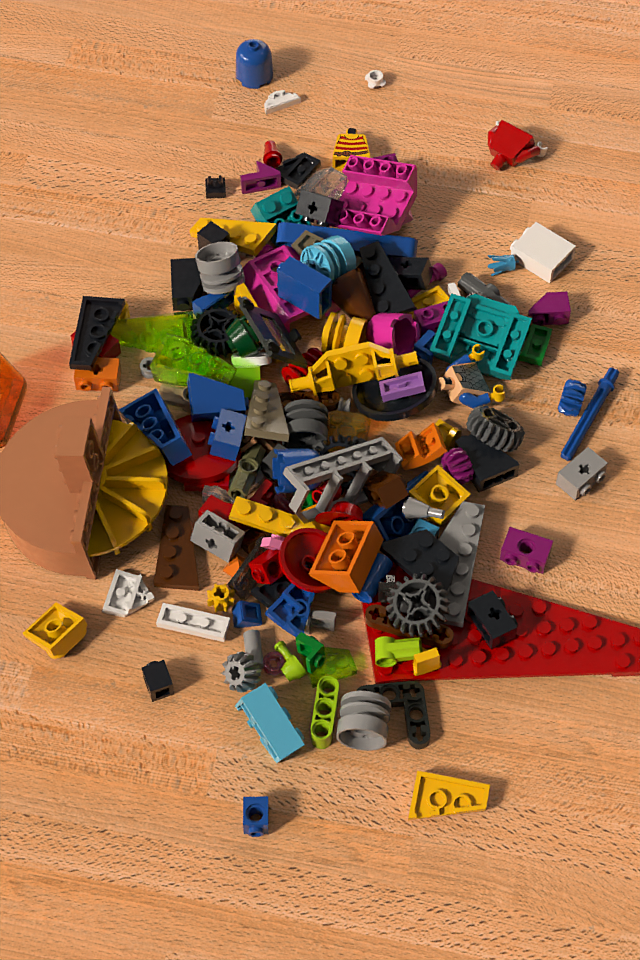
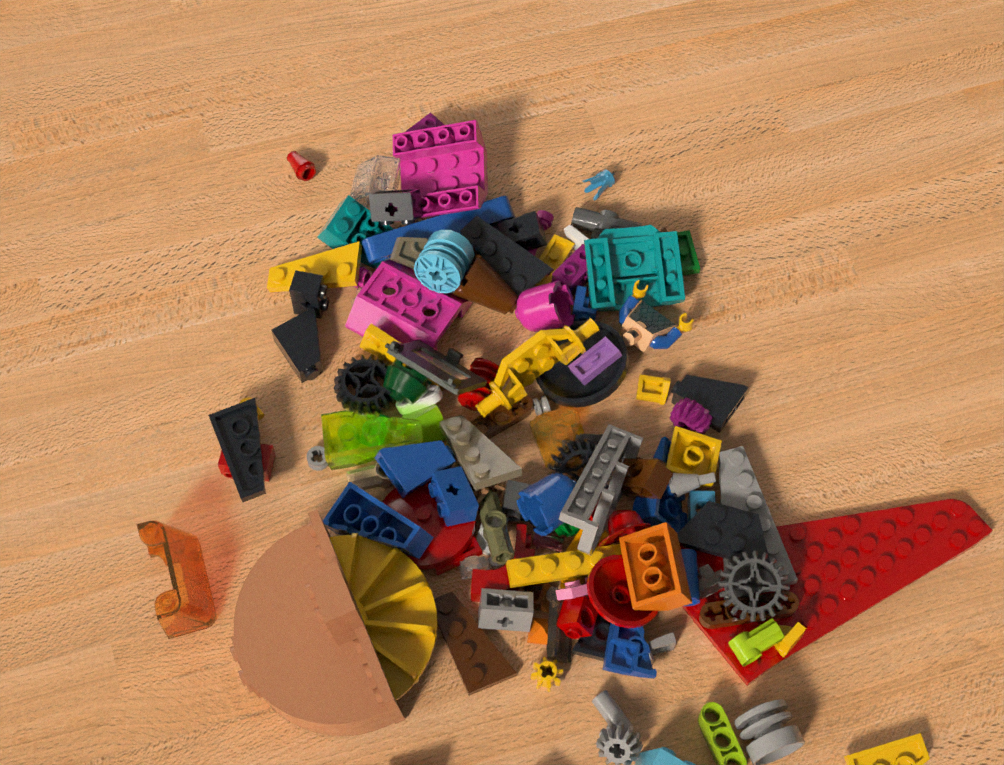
camera: 30 degrees left, 5 degrees up
(103, 374) = (283, 491): orange brick -> none
(126, 594) = (447, 719): white slope -> none
(150, 330) = (300, 415): clear neon green wedge -> none
(193, 622) = (534, 714): white plate -> none
(212, 300) = (342, 354): blue slope -> none
(215, 187) = (264, 227): black tile -> none
(219, 267) = (335, 317): light grey wheel -> none
(246, 614) = (580, 678): blue slope -> none
(254, 63) = (224, 74): blue cylinder -> none
(264, 179) = (309, 197): magenta slope -> none
(268, 667) = (647, 715): clear pink bush -> none
(280, 100) = (272, 102): white tile -> none
(292, 668) = (662, 711): lime bar -> none
(298, 169) = (336, 173): black wing -> none
(304, 287) = (438, 300): blue brick -> none
(306, 424) = (524, 445): dark grey wheel -> none
(312, 649) = (674, 683): green bracket -> none
(337, 664) = (688, 688): clear neon green wing -> none
(338, 334) = (499, 333): yellow wheel -> none
(347, 145) = (378, 126): torso -> none
(375, 79) = (355, 39): white plate -> none
(410, 703) = (791, 688): pearl dark grey beam -> none
(421, 448) = (644, 414): orange slope -> none
(492, 619) = (829, 573): black brick -> none
(495, 428) = (703, 361): dark grey gear -> none
(512, 145) = (534, 54): red torso -> none
(518, 541) = (814, 464): magenta brick -> none
(542, 252) = (630, 153): white brick -> none
(551, 309) = (677, 209): magenta slope -> none
(572, 397) = (752, 294): blue gear -> none
(582, 474) = (804, 379): light grey brick -> none
(605, 386) = (771, 268): blue axle -> none

